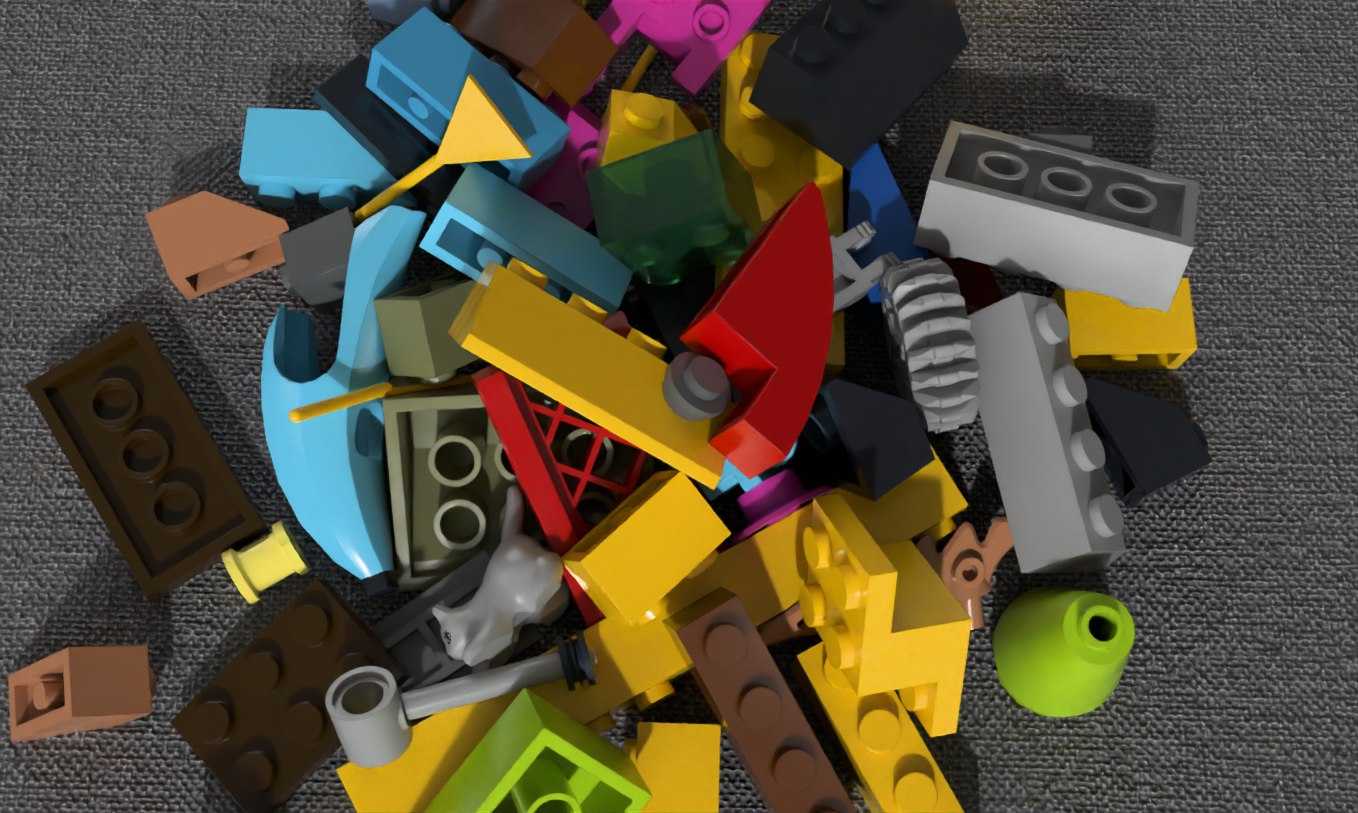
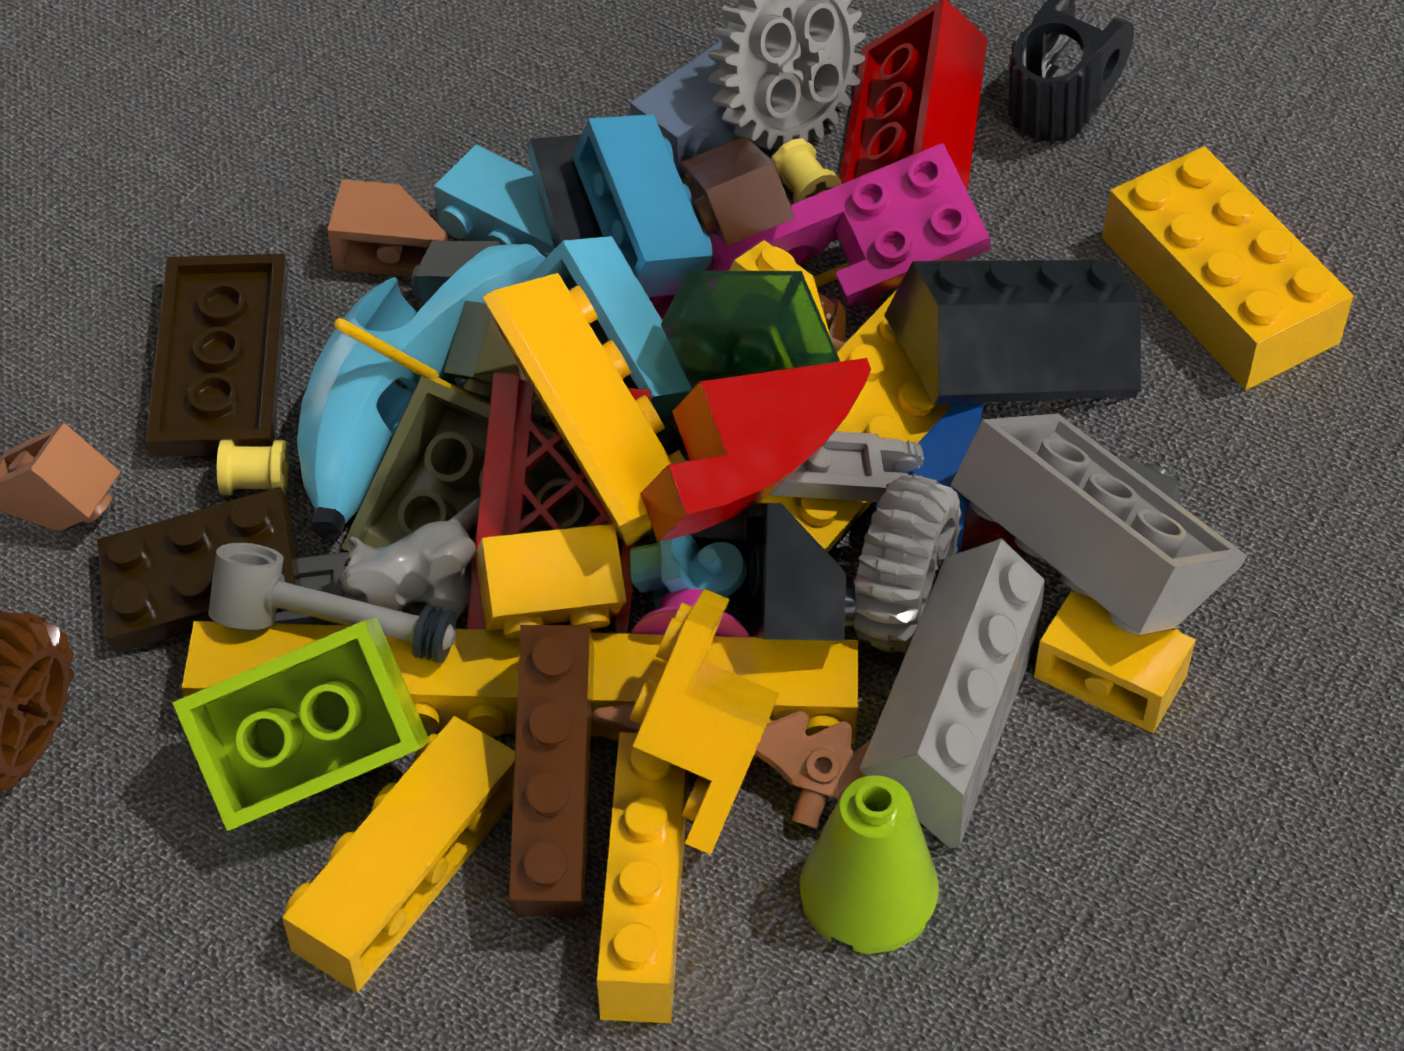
camera: 35 degrees right, 20 degrees down
(473, 135) = (623, 214): yellow piece -> none
(696, 387) = (655, 444): dark grey plate -> none
(1144, 441) = (1065, 756): black slope -> none

